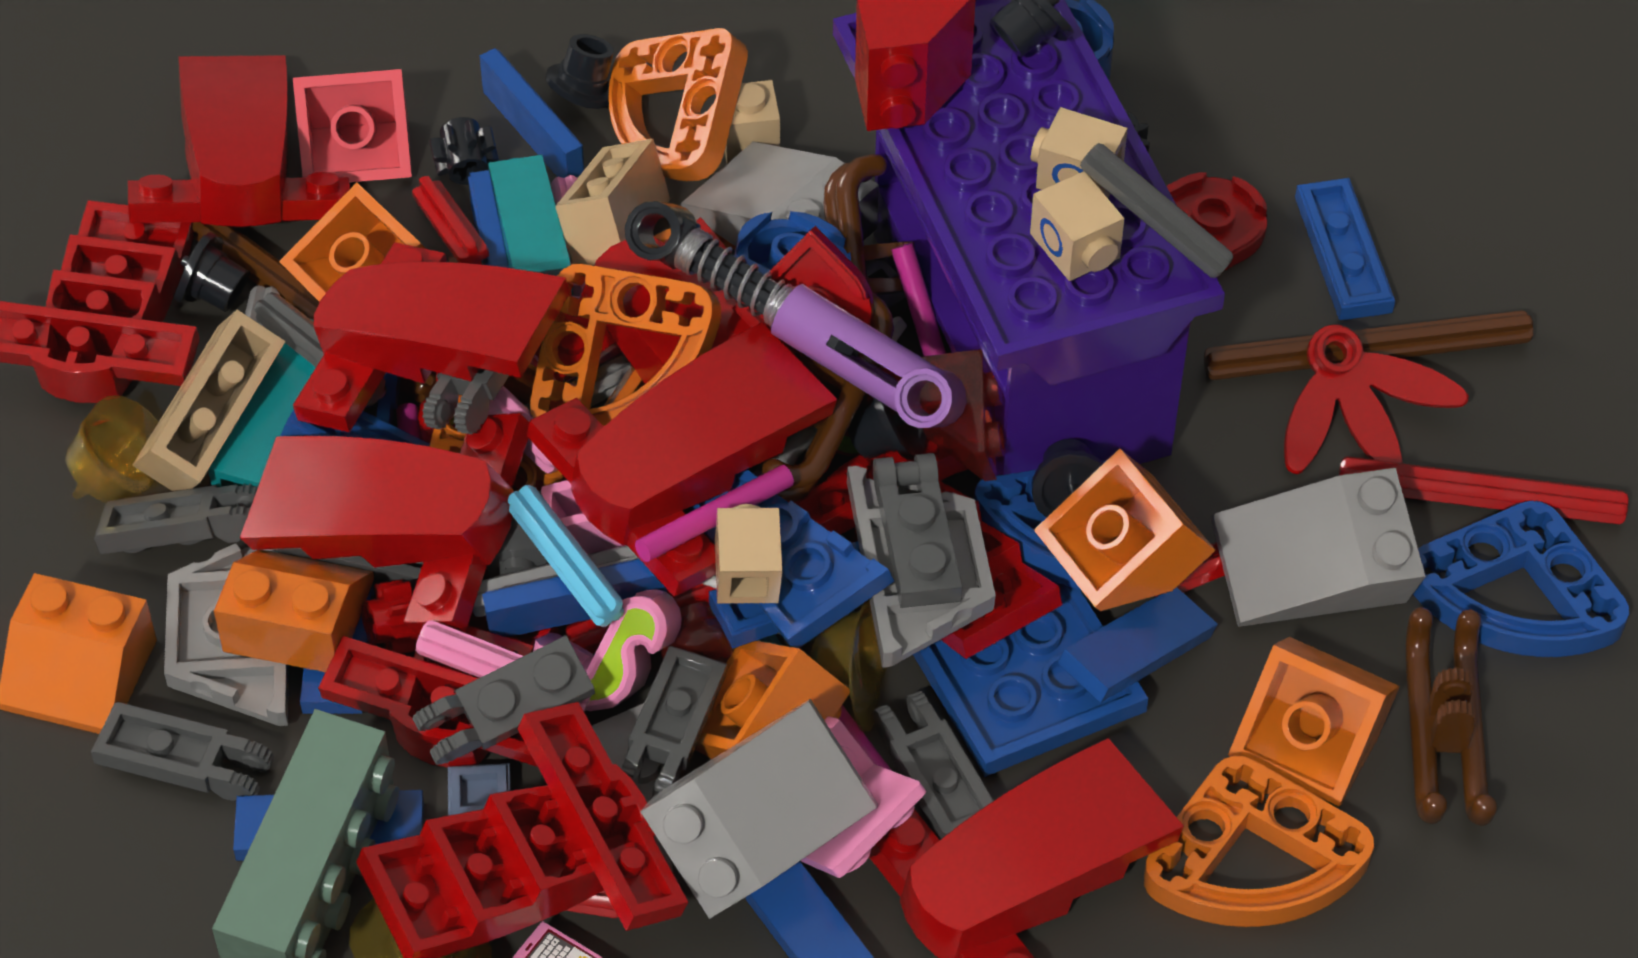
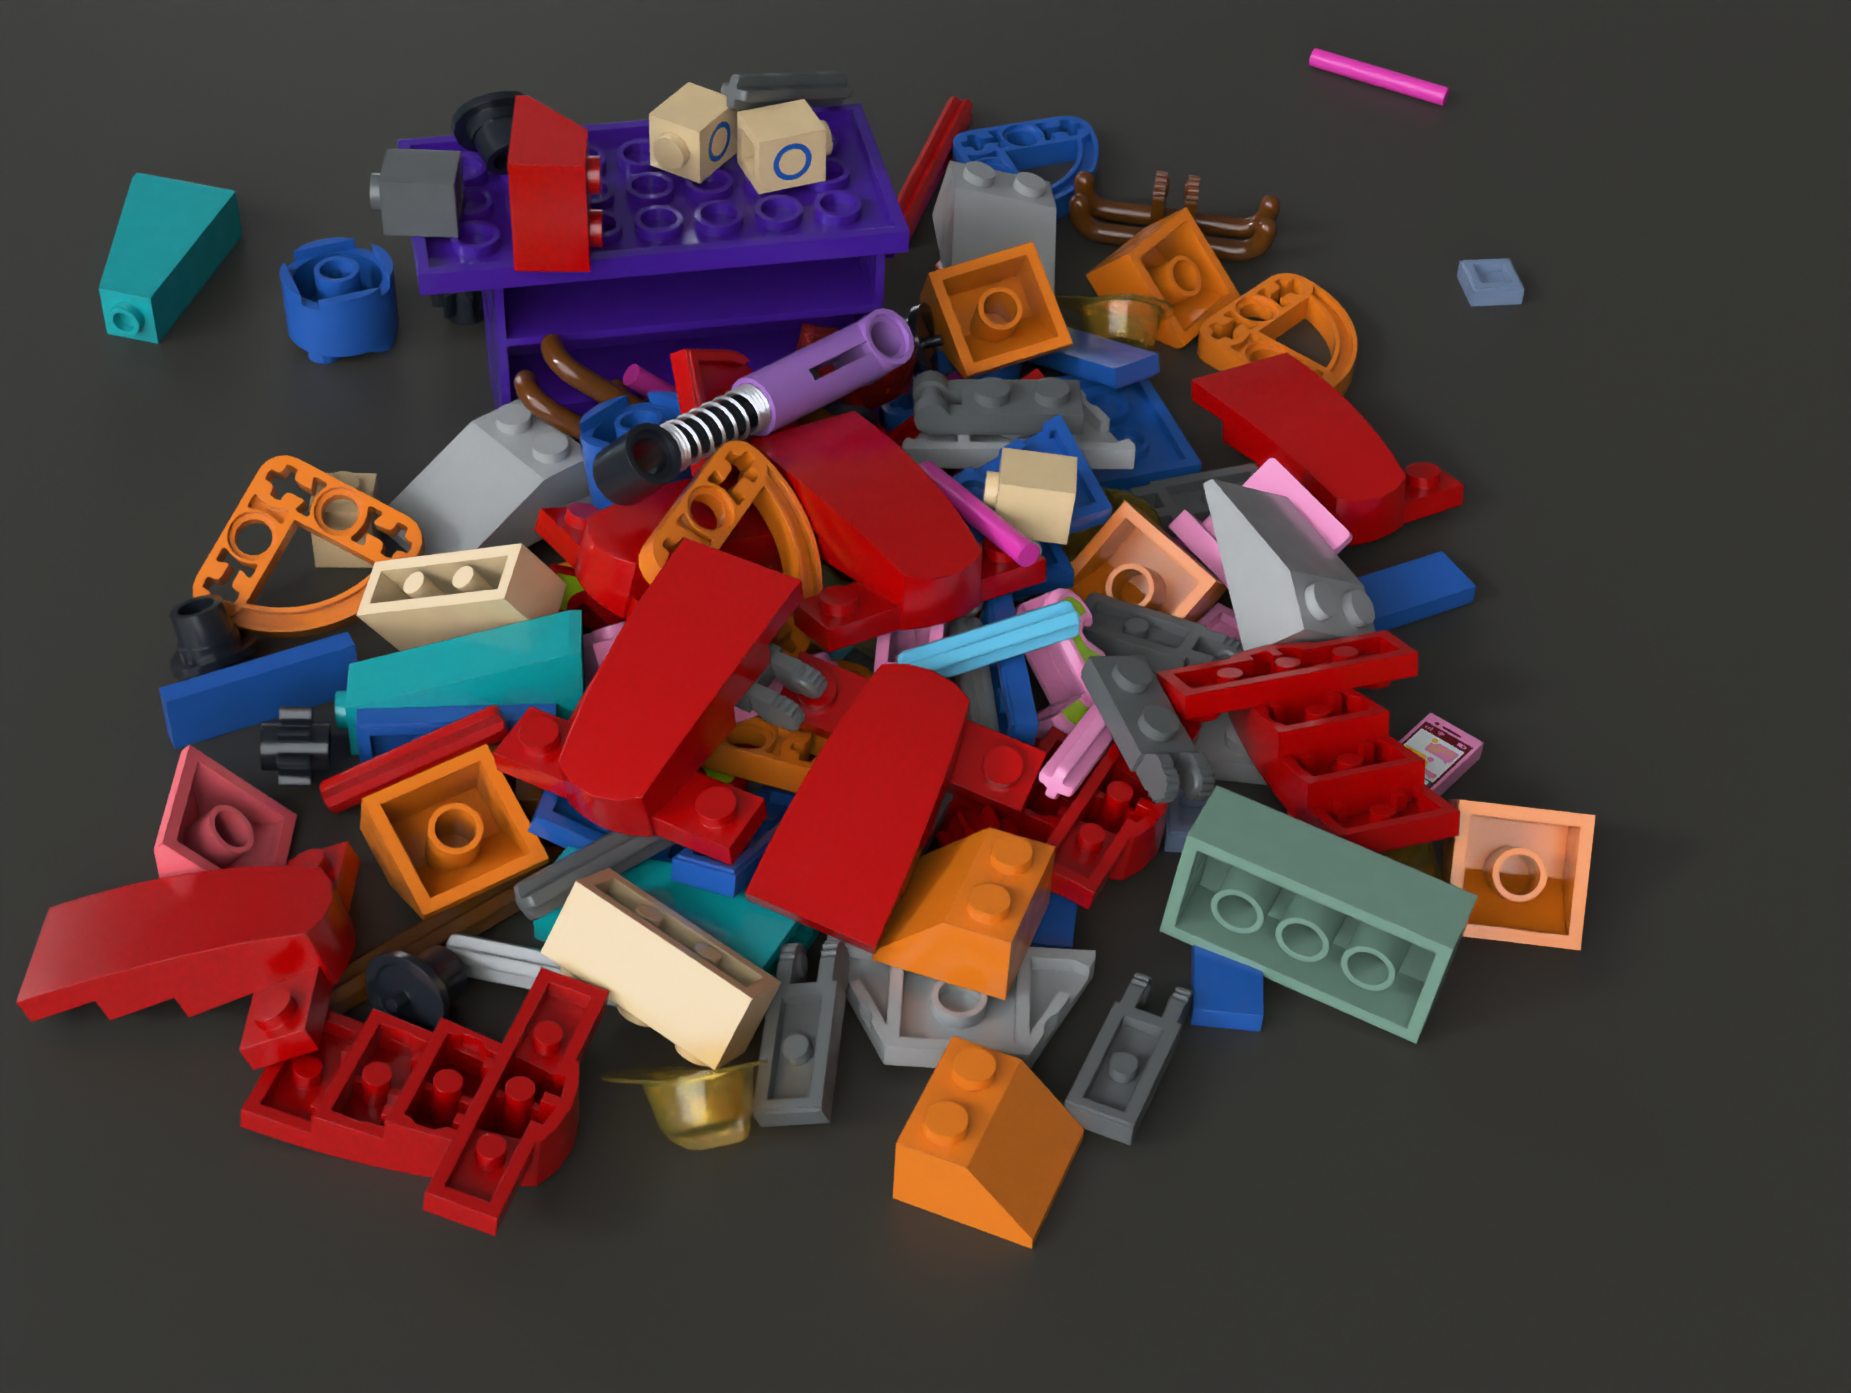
camera: 85 degrees left, 10 degrees down
(1218, 667) = (1120, 317): none -> clear yellow piece

